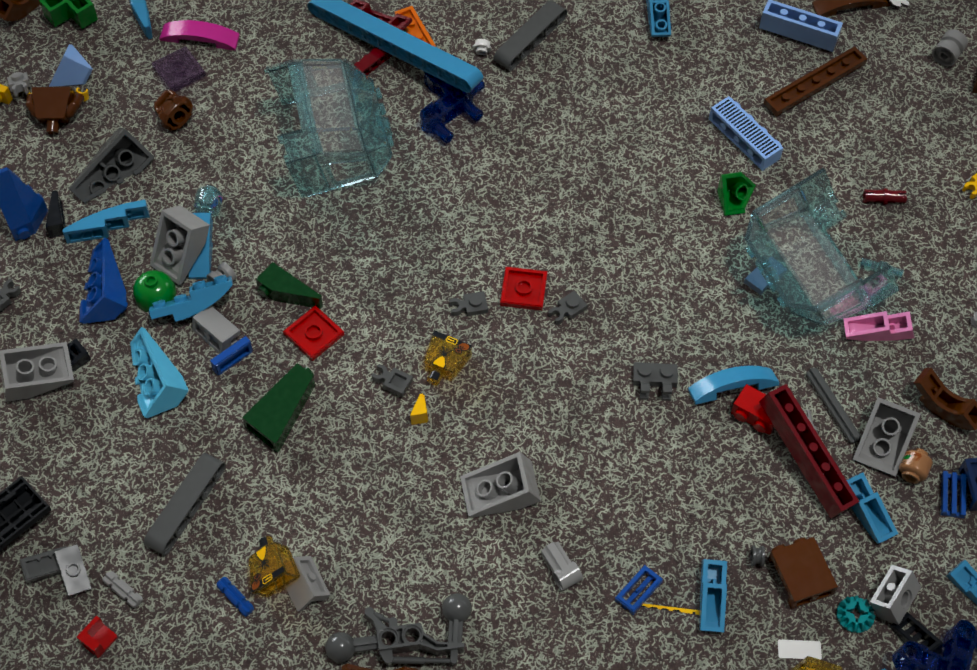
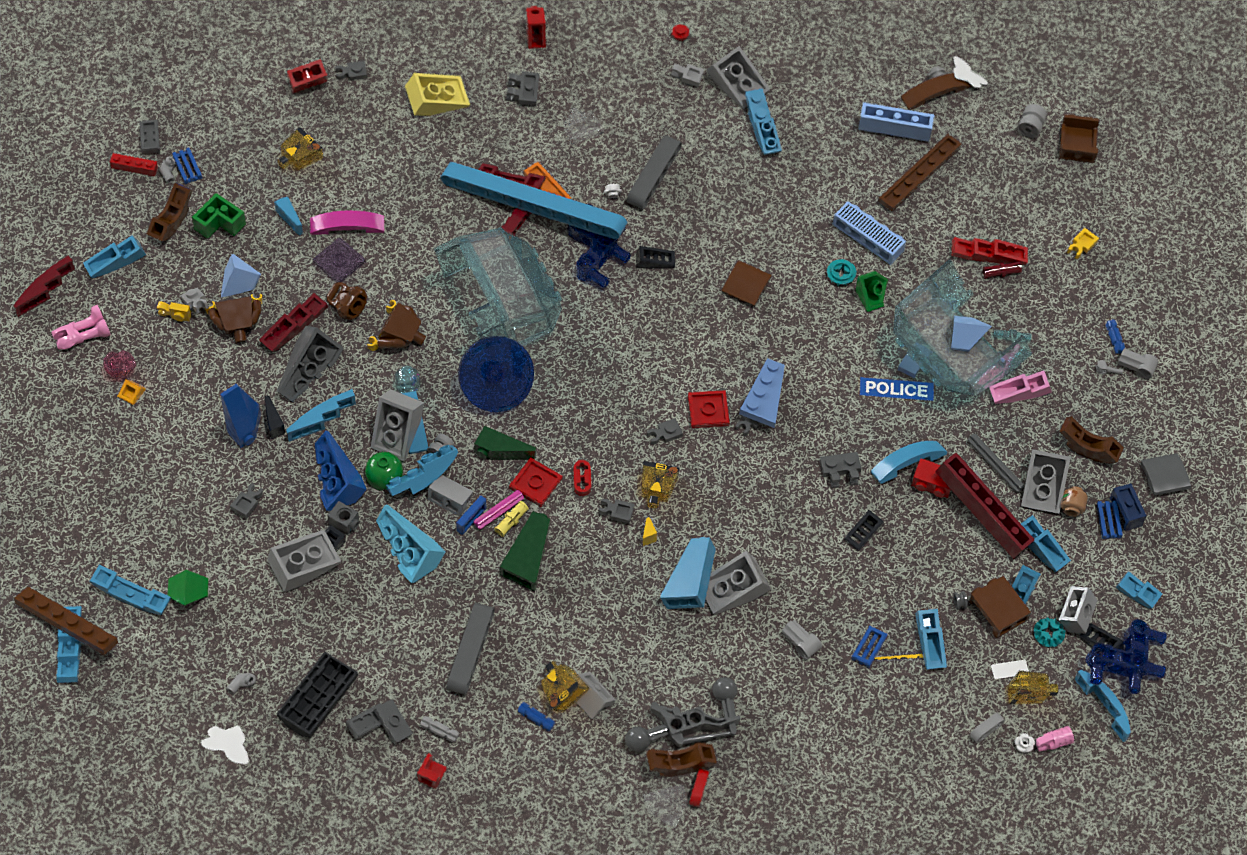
camera: 15 degrees left, 0 degrees up
(90, 327) = (343, 511): none -> dark grey brick
(104, 126) = (292, 324): none -> dark red slope
(215, 147) = (398, 329): none -> reddish brown torso
(263, 375) = (511, 518): none -> light yellow pin
(264, 355) = (498, 509): none -> dark pink axle
(299, 209) = (496, 373): none -> clear blue dish
(360, 336) = (578, 478): none -> red beam
(453, 468) = (691, 576): none -> dark azure slope
(501, 125) = (647, 263): none -> black slope
(586, 286) = (764, 395): none -> medium blue wing
(599, 163) = (746, 283): none -> reddish brown slope
(672, 438) = (863, 521): none -> black slope
(700, 163) = (834, 269): none -> teal gear
(738, 303) = (896, 389): none -> blue sticker
(830, 255) = (967, 332): none -> light blue slope
(838, 550) = (1025, 583): none -> dark azure slope
(874, 175) = (992, 252): none -> red slope

